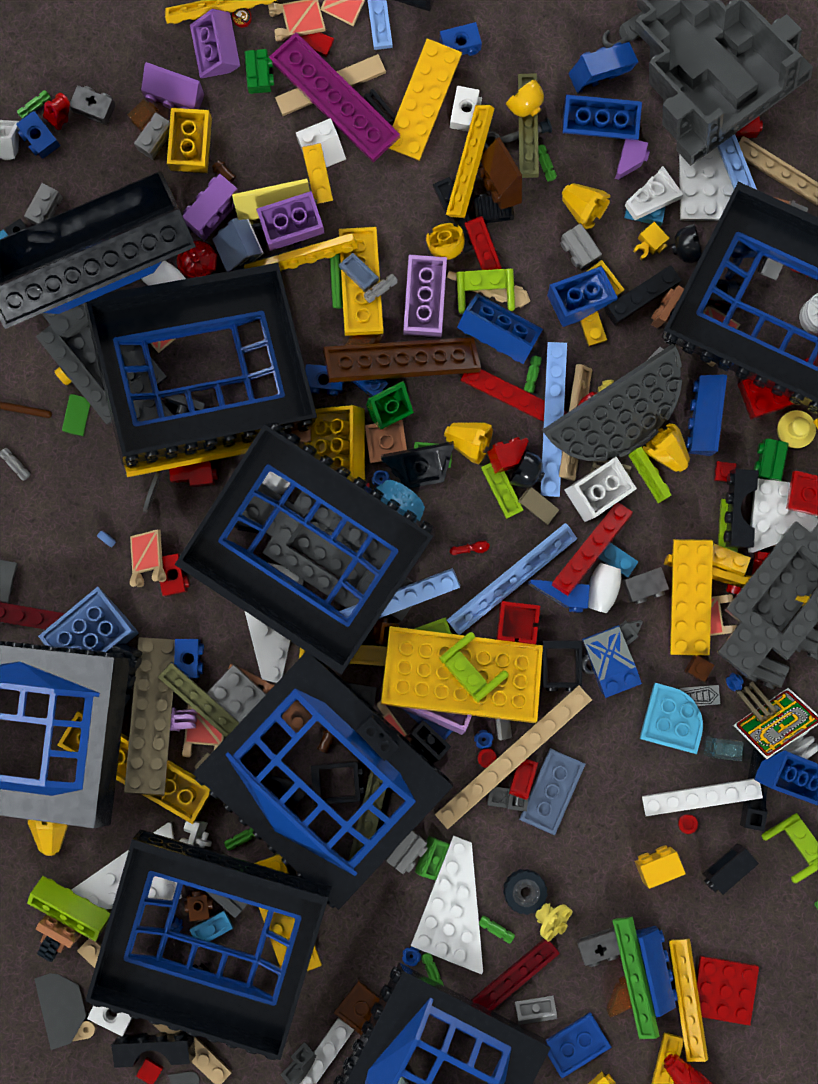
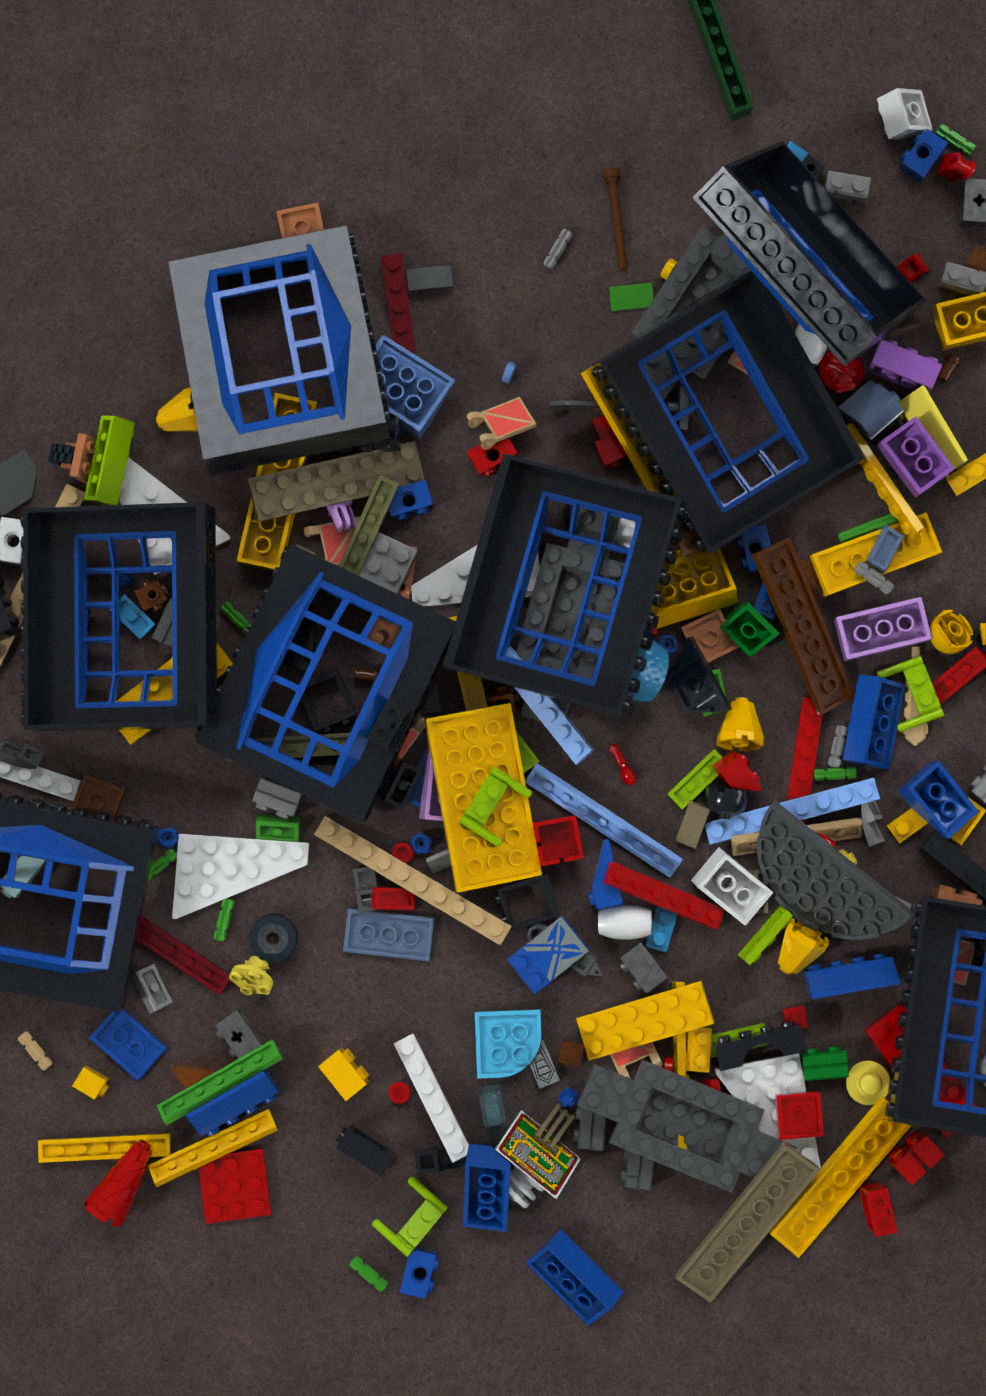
camera: 80 degrees right, 0 degrees up
(129, 173) = (913, 267): none -> red slope
(198, 835) = (227, 570): white hips -> none
(510, 364) = (838, 746): none -> light grey axle
(576, 356) = (870, 814): none -> light grey slope

